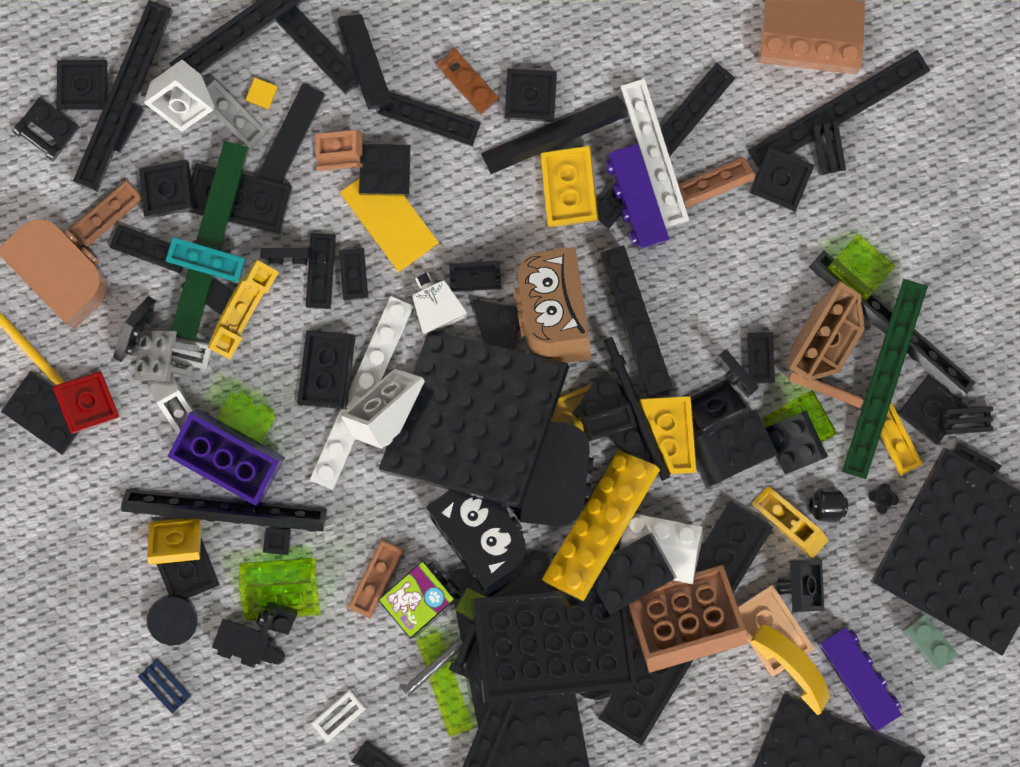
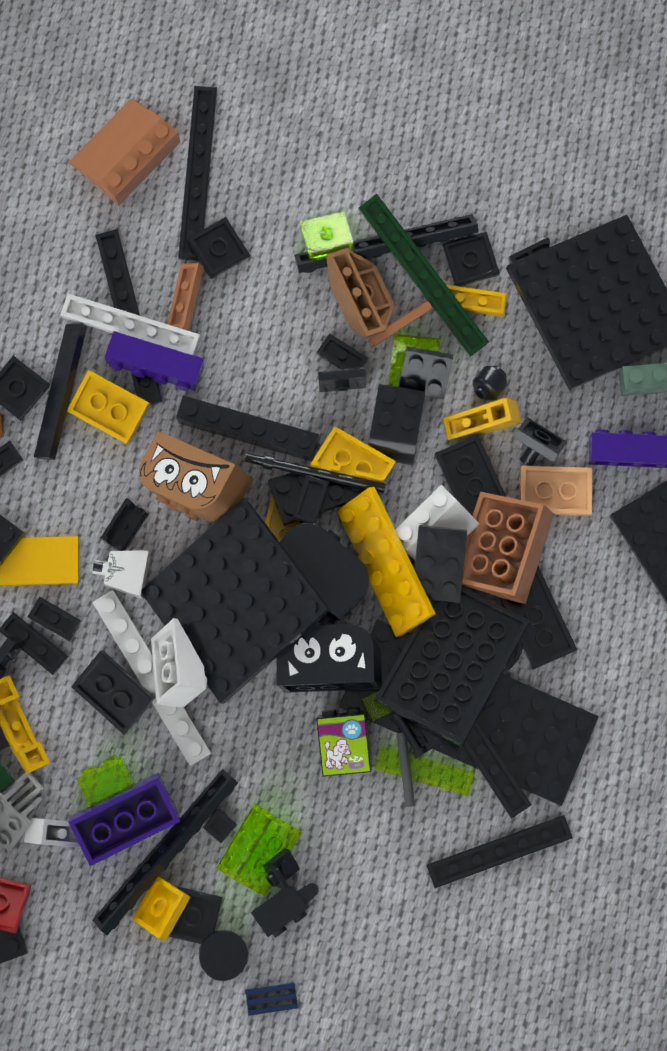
camera: 55 degrees left, 5 degrees down
(355, 701) = (389, 851): white tile -> none
(375, 579) = (304, 768): nougat tile -> none
(497, 323) = (172, 534): black wing -> none
(717, 408) = (358, 412): black tile -> none
(796, 663) = (590, 487): yellow slope -> none
(838, 147) = (223, 190): black tile -> none
(891, 498) = (507, 334): black plate -> none
(987, 418) = (505, 224): black tile -> none

